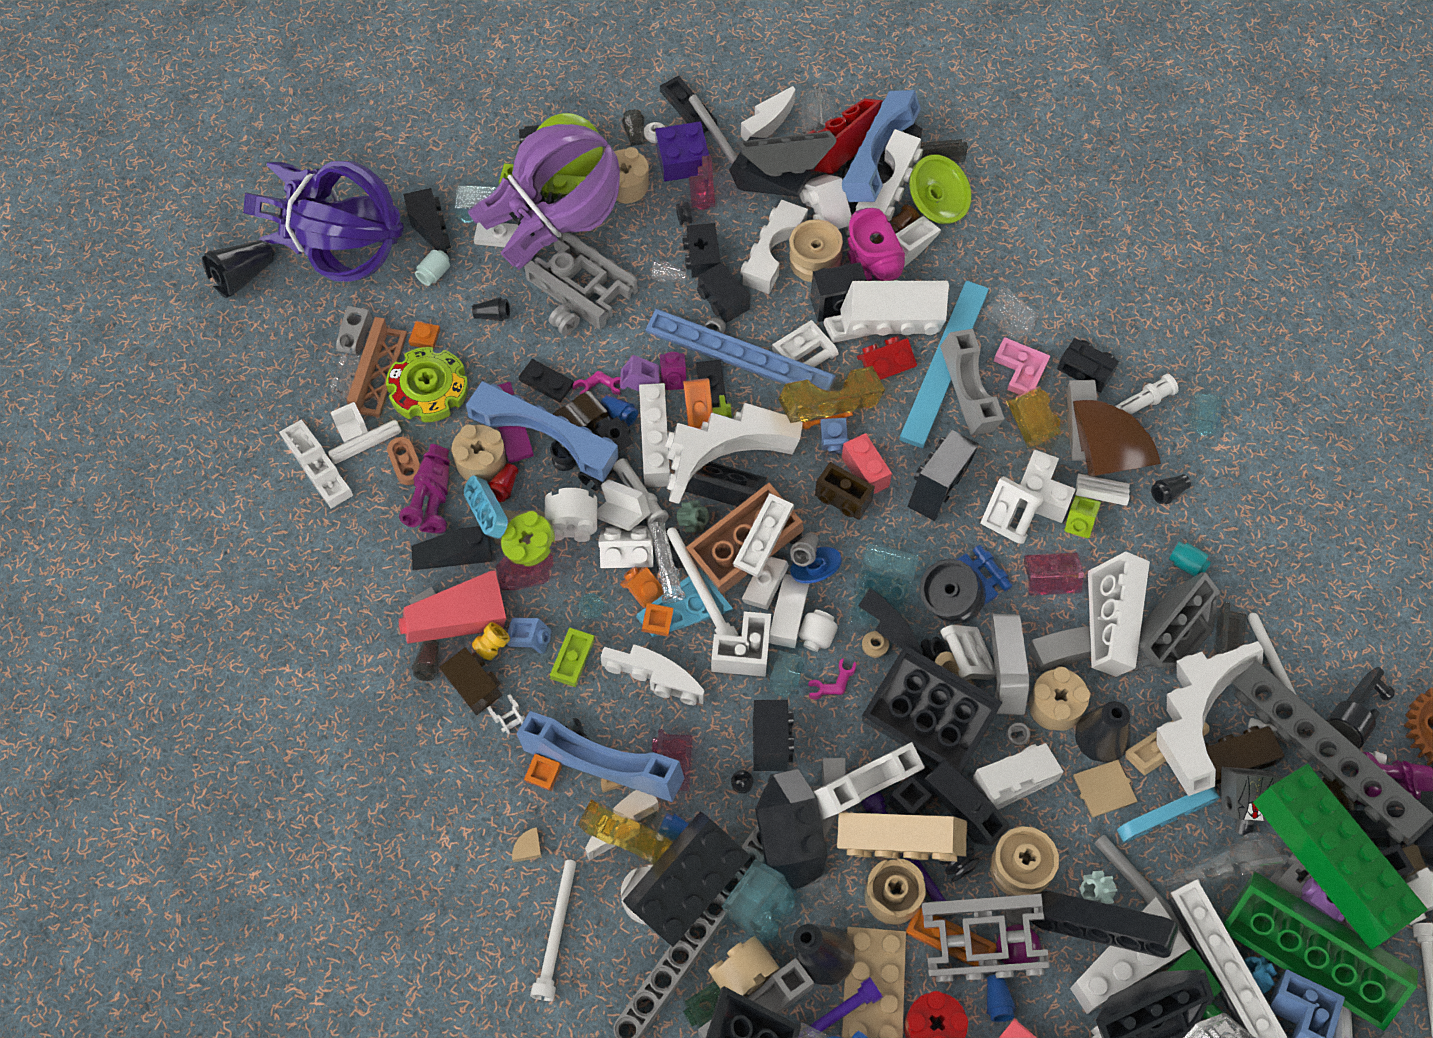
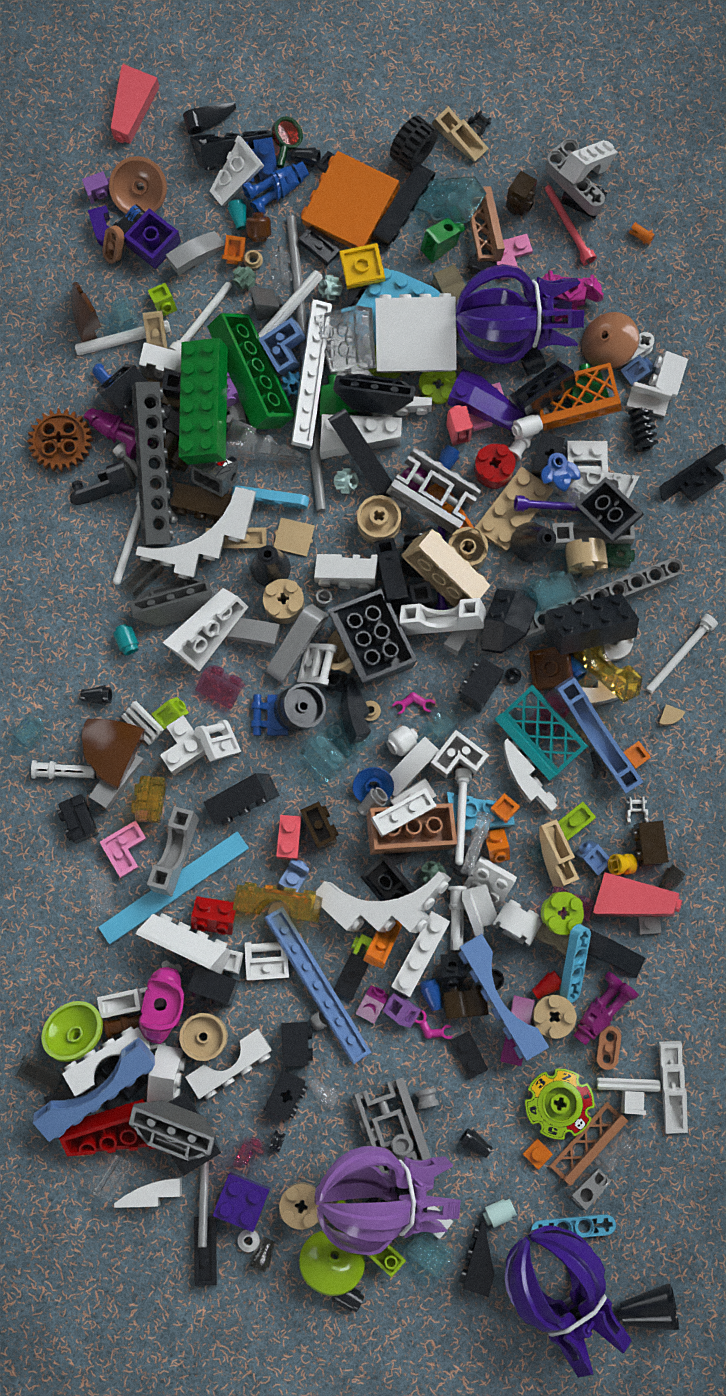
camera: 145 degrees left, 15 degrees up
(350, 292) = (573, 1222): none -> medium azure beam
(569, 607) = (557, 854): none -> tan slope
(673, 707) = (531, 747): none -> teal fence
(706, 798) = (549, 668): none -> reddish brown tile

